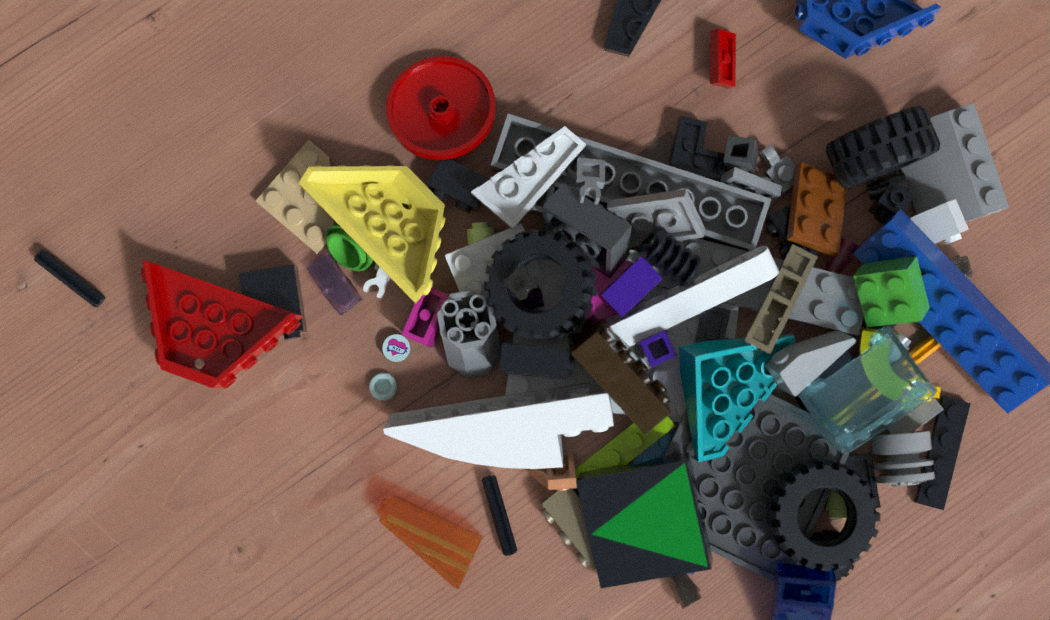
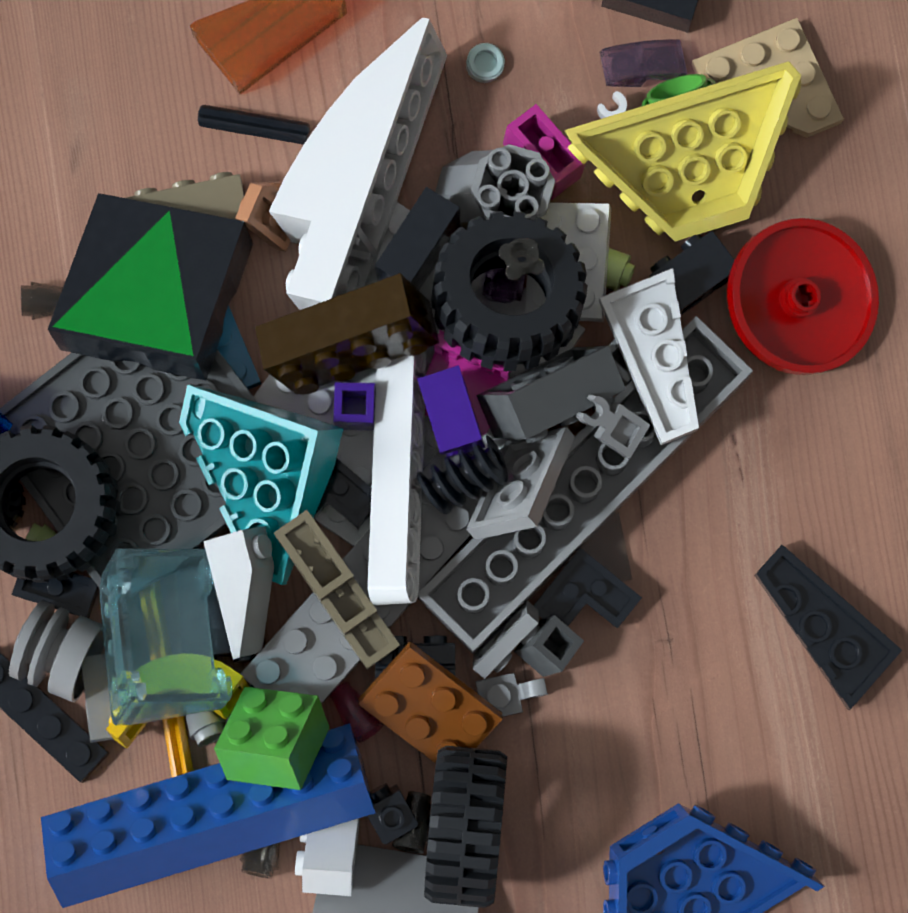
camera: 120 degrees right, 5 degrees down
(396, 348) = (522, 97): light aqua tile -> none
(625, 447) = (252, 308): lime plate -> none
(722, 58) = (692, 693): red plate -> none

